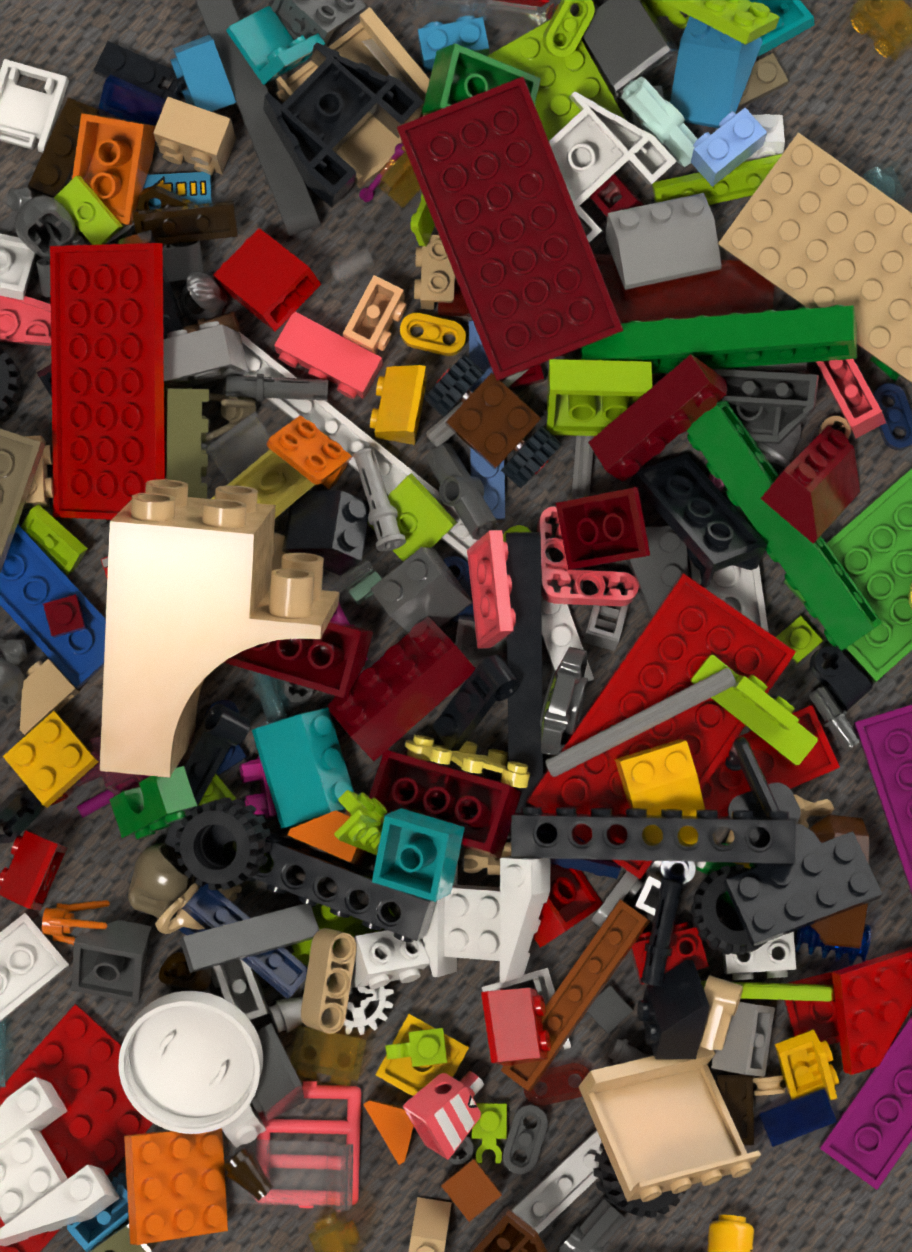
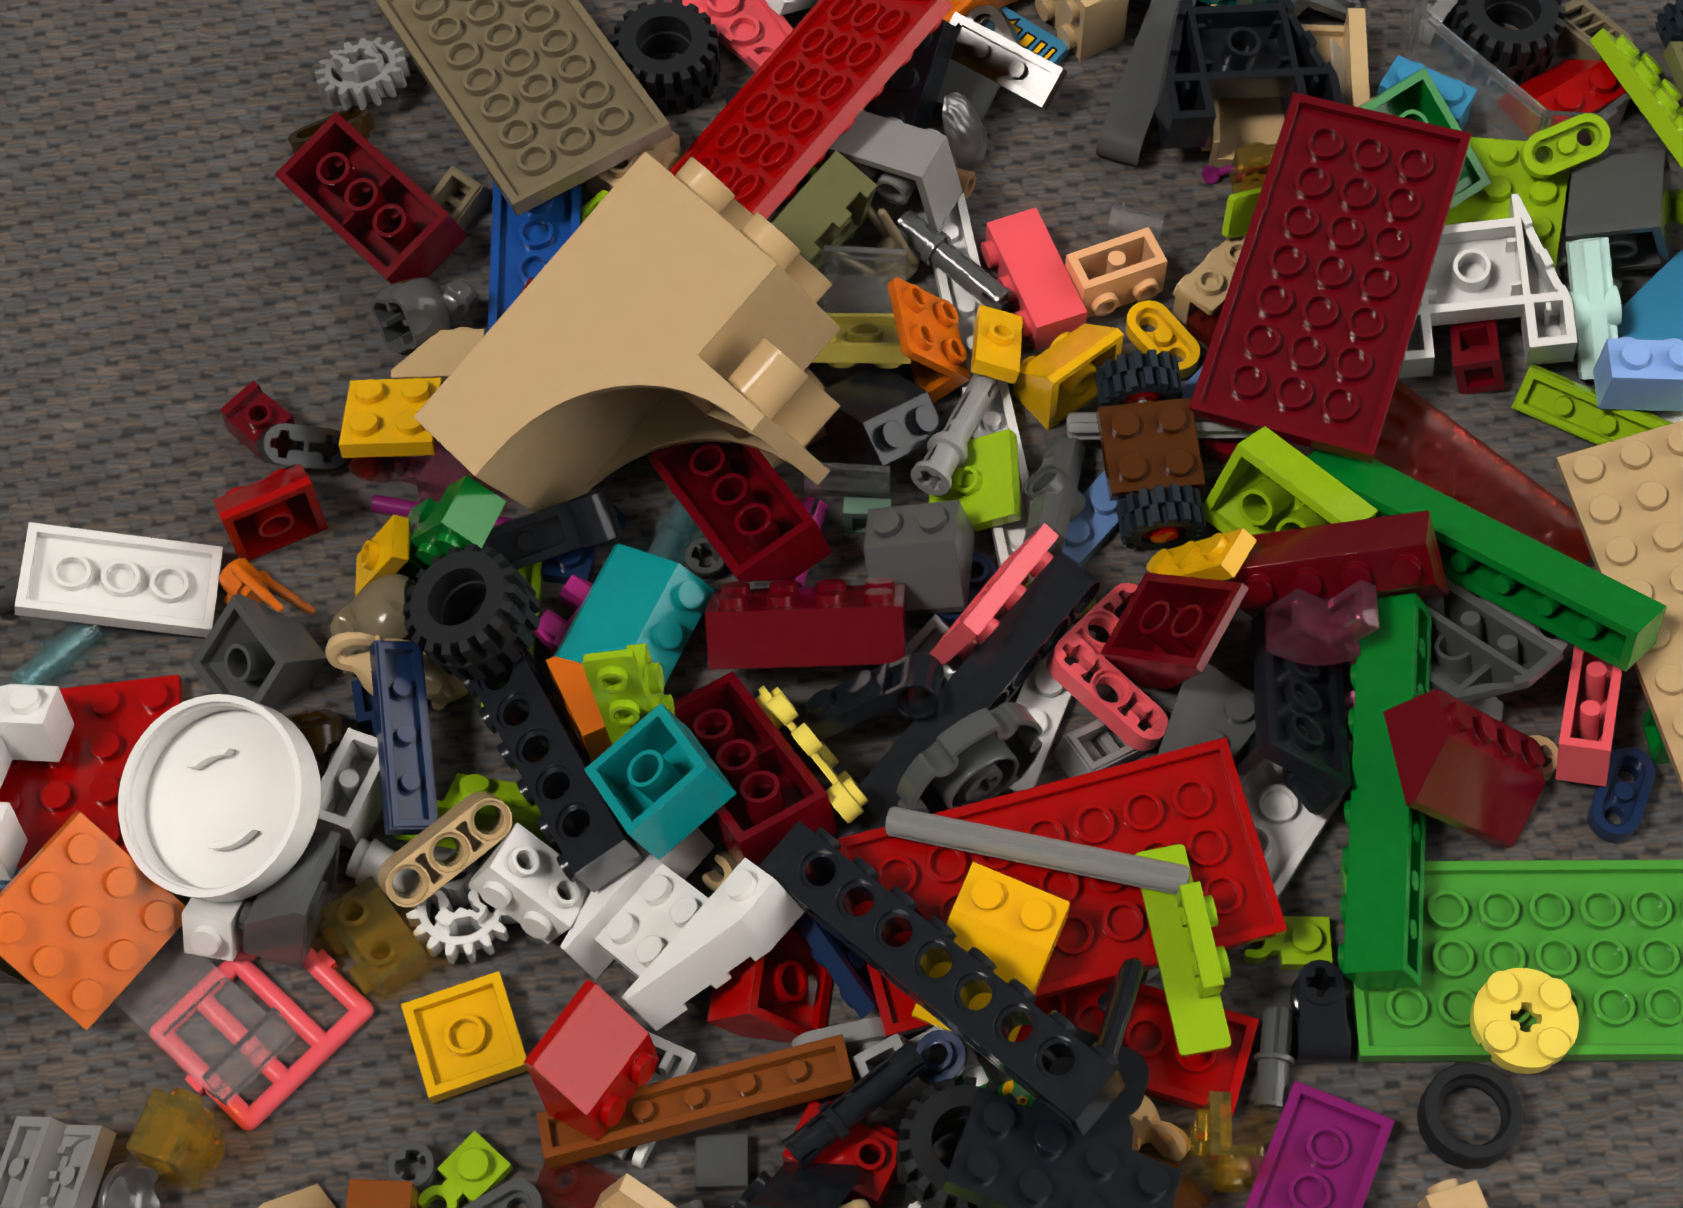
camera: 40 degrees right, 20 degrees down
(126, 845) = (384, 552): none -> yellow plate
(247, 1173) = (165, 983): dark brown cone -> none
(249, 937) = (405, 728): dark grey tile -> none
(267, 279) = (1035, 163): red brick -> none
(350, 423) = (997, 344): none -> yellow plate
(393, 1126) = (366, 1080): orange slope -> none
(424, 1048) = (477, 1017): lime plate -> none
(445, 1111) = (433, 1102): coral torso -> none
(578, 473) = (1209, 558): none -> yellow plate
(663, 241) = (1497, 419): light grey slope -> none
(680, 462) = (1319, 630): none -> clear pink brick
(843, 791) = (1210, 1139): none -> clear yellow bracket

